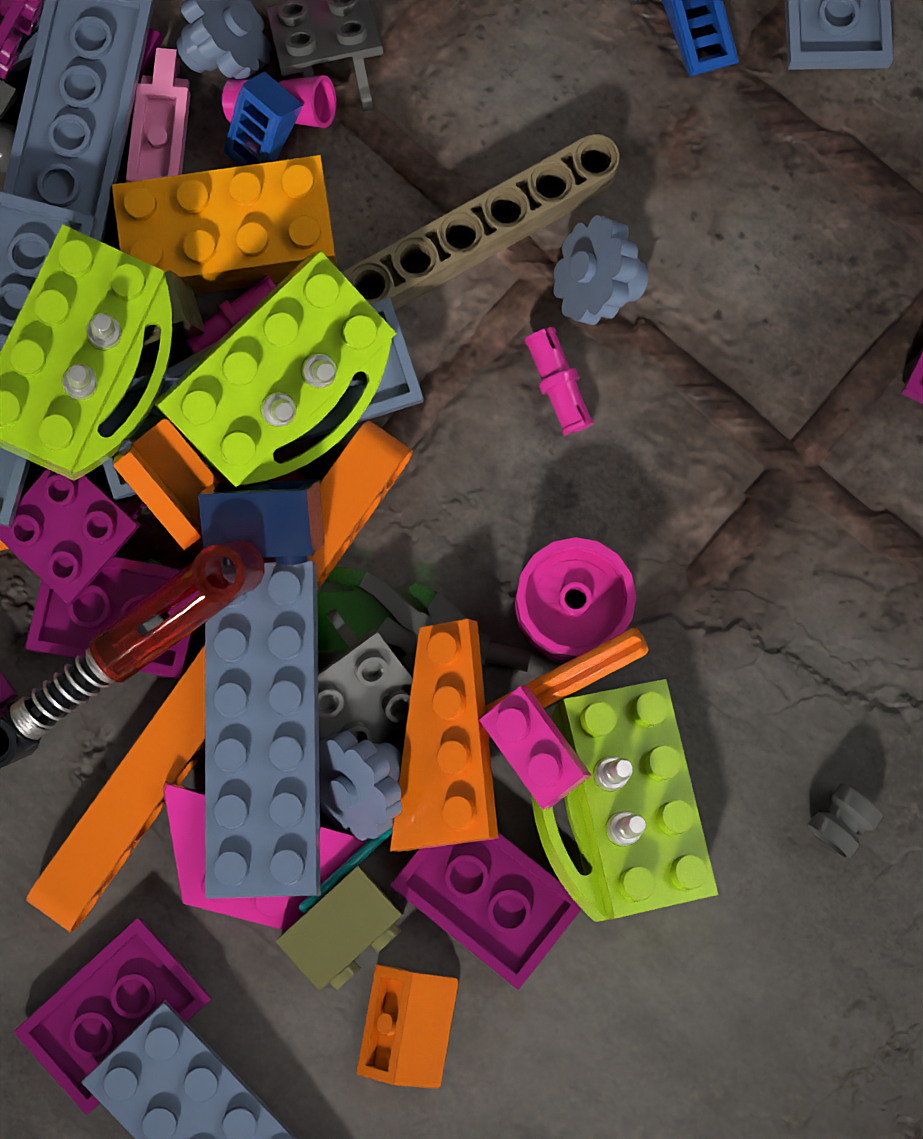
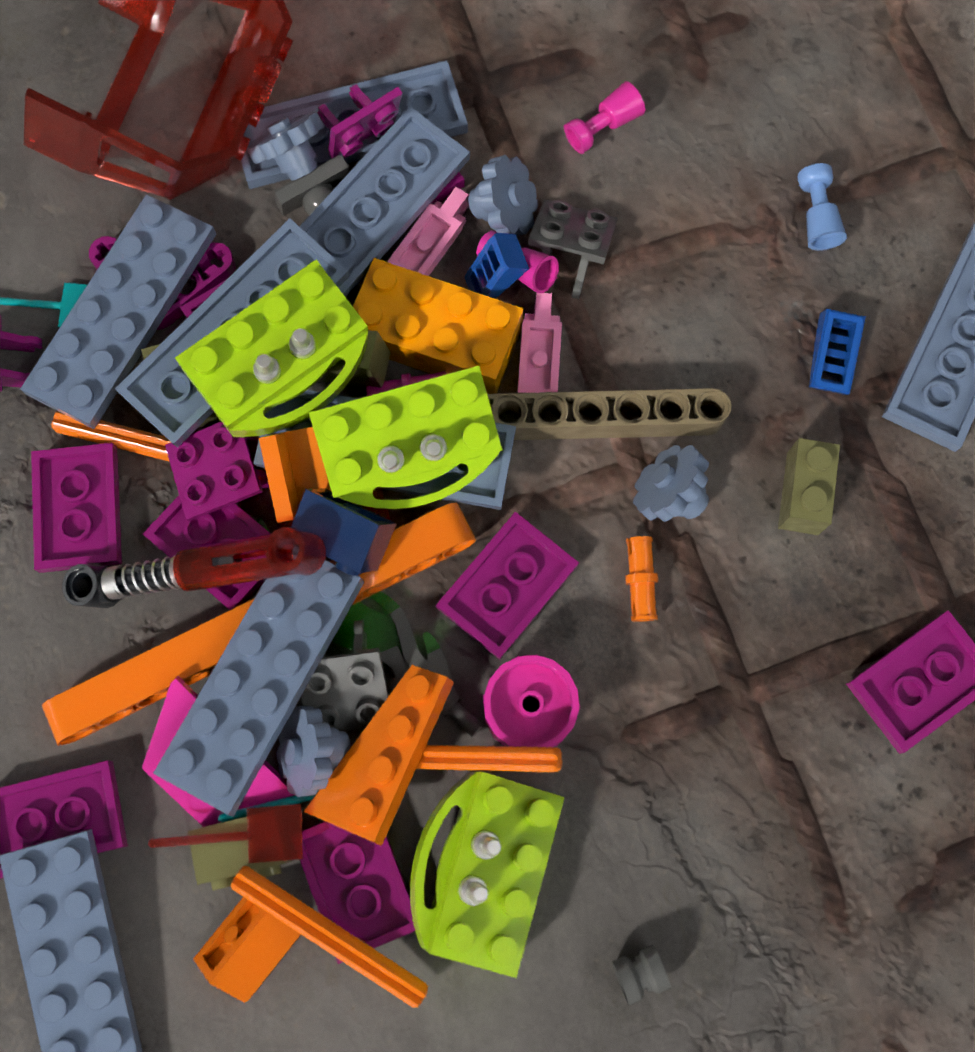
camera: 30 degrees right, 5 degrees down
(361, 192) = (540, 348): none -> bright pink hinge
(369, 891) = (271, 835): none -> clear red piece
(474, 483) = (507, 585): none -> magenta plate
(493, 964) = (330, 936): none -> orange axle
(534, 747) = (441, 795): dark pink plate -> none
(559, 381) = (605, 546): dark pink pin -> none
(619, 396) = (641, 579): none -> orange pin
(749, 193) = (809, 486): none -> olive brick

